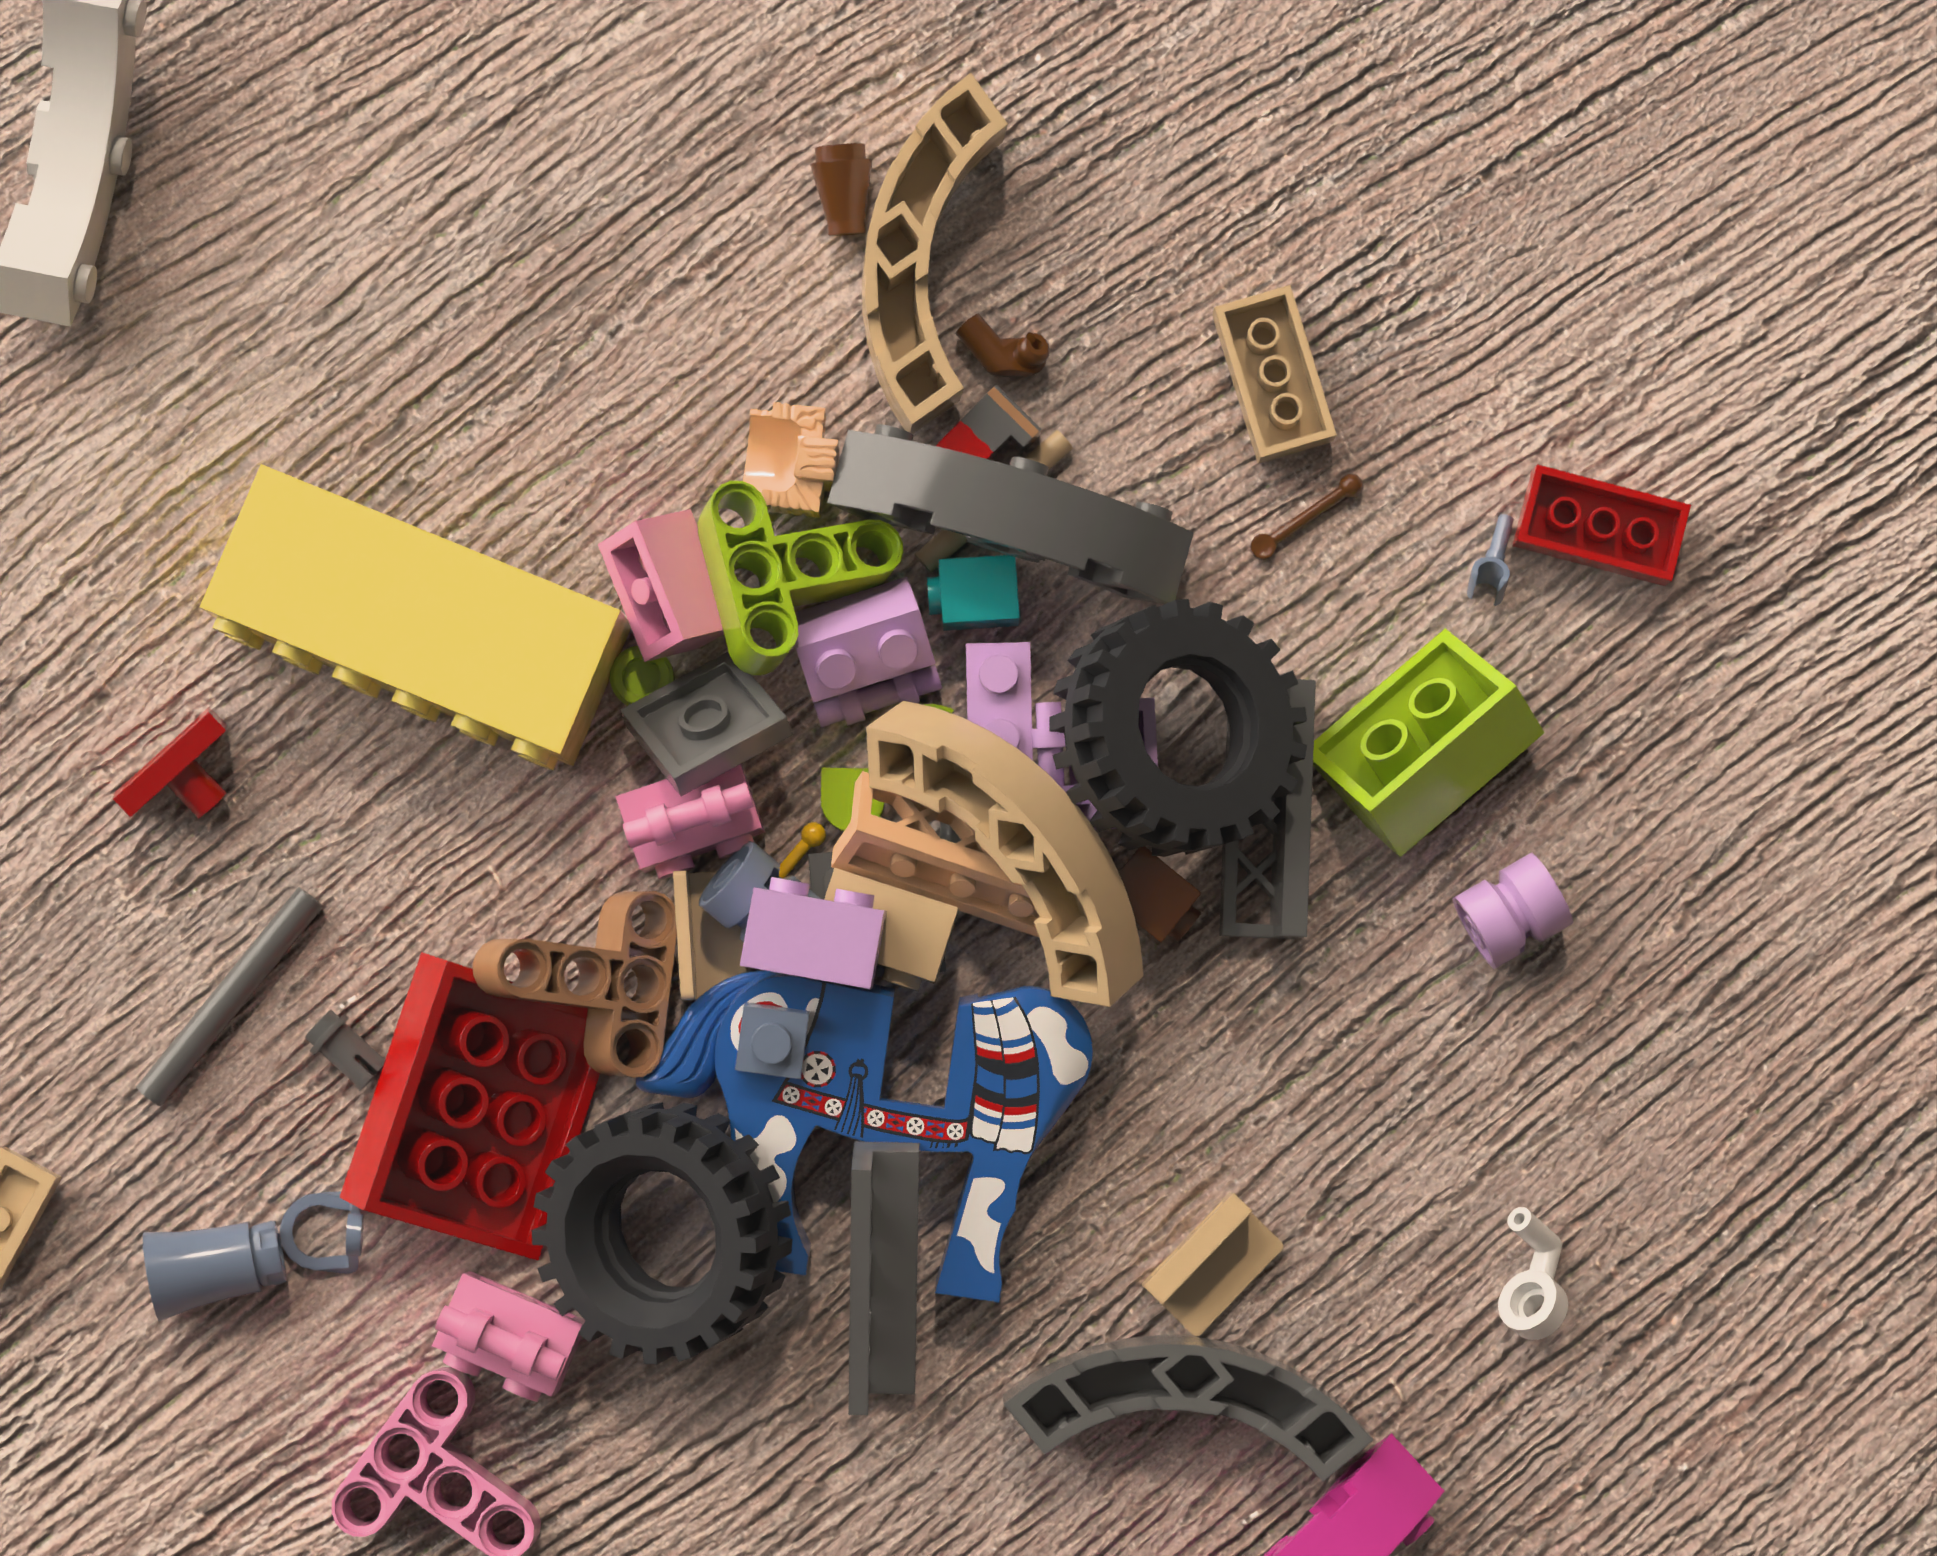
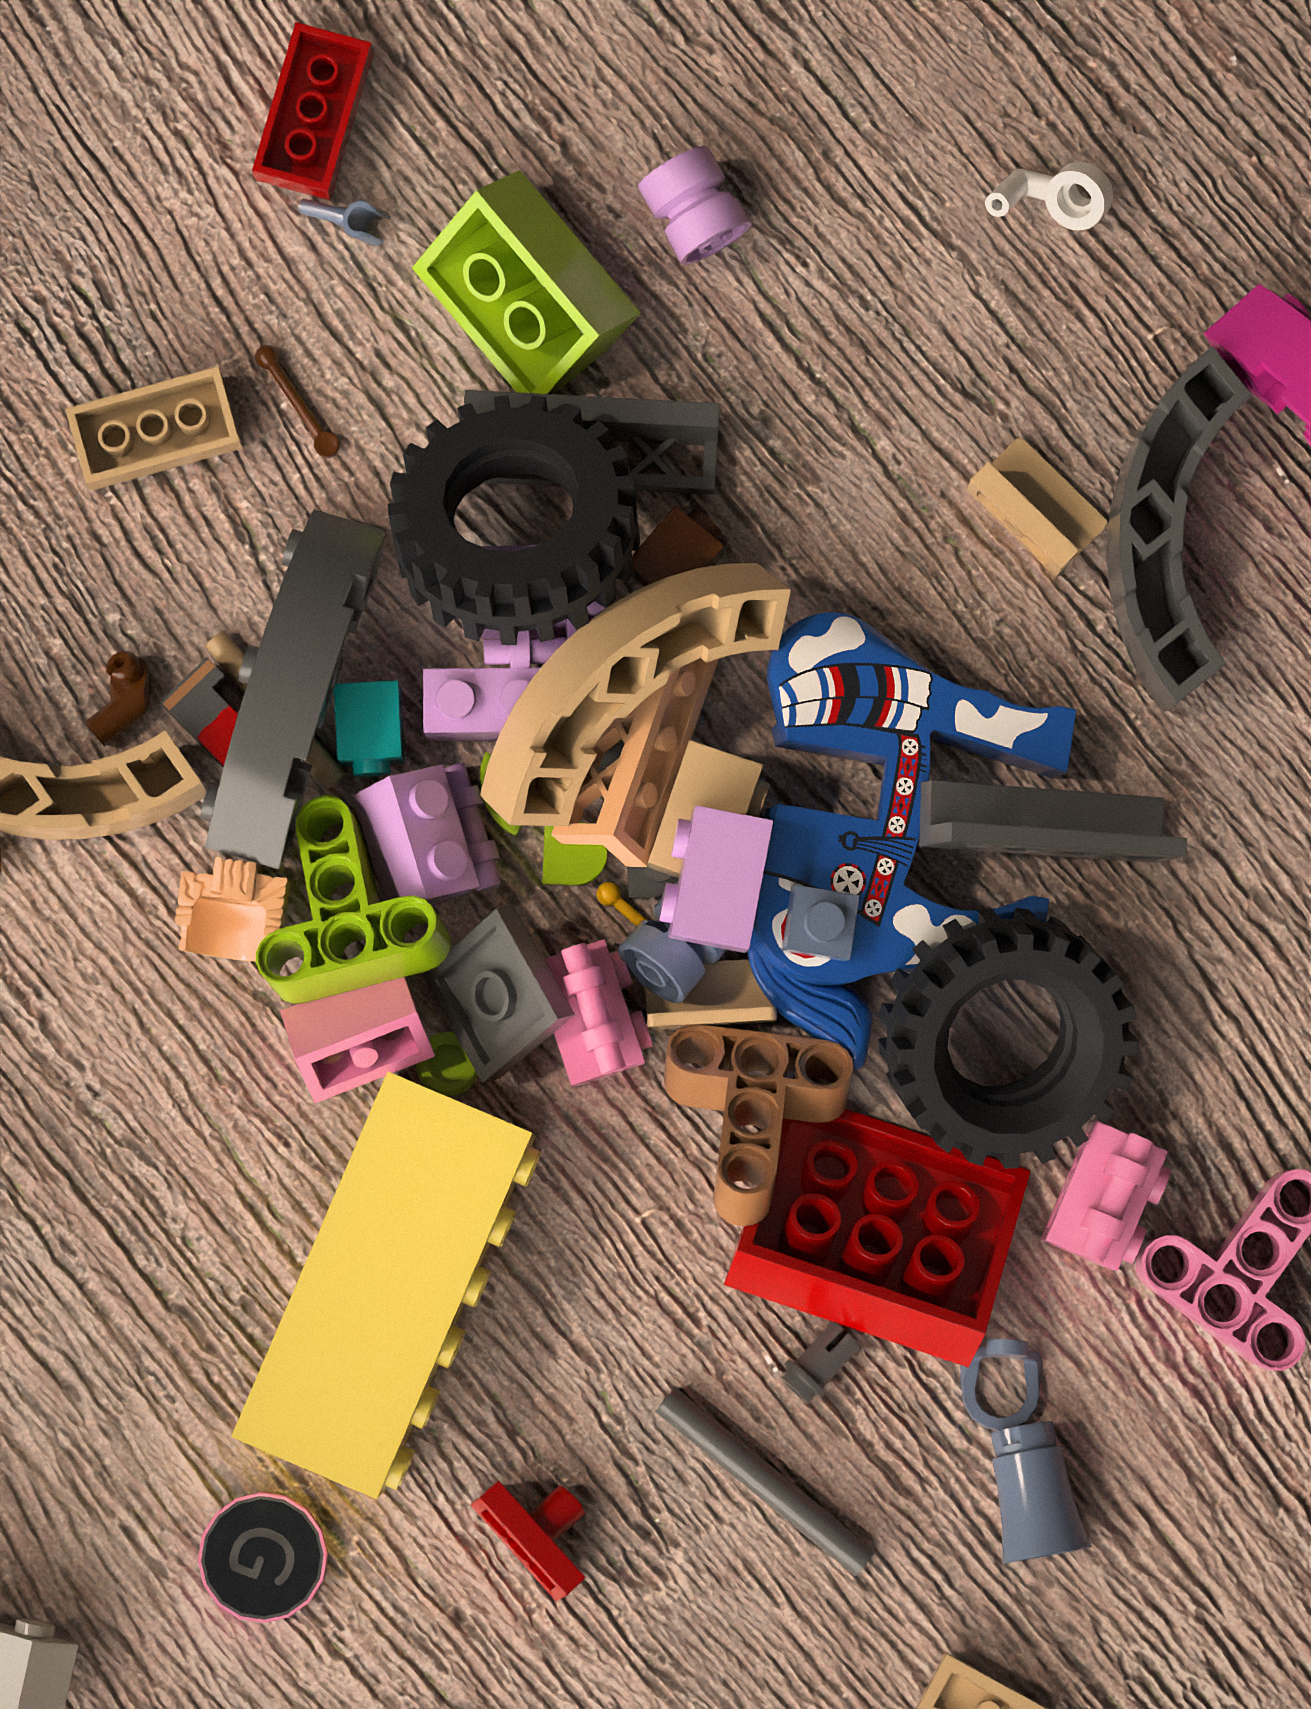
camera: 90 degrees left, 0 degrees up
(158, 505) = (263, 1557): none -> black tile

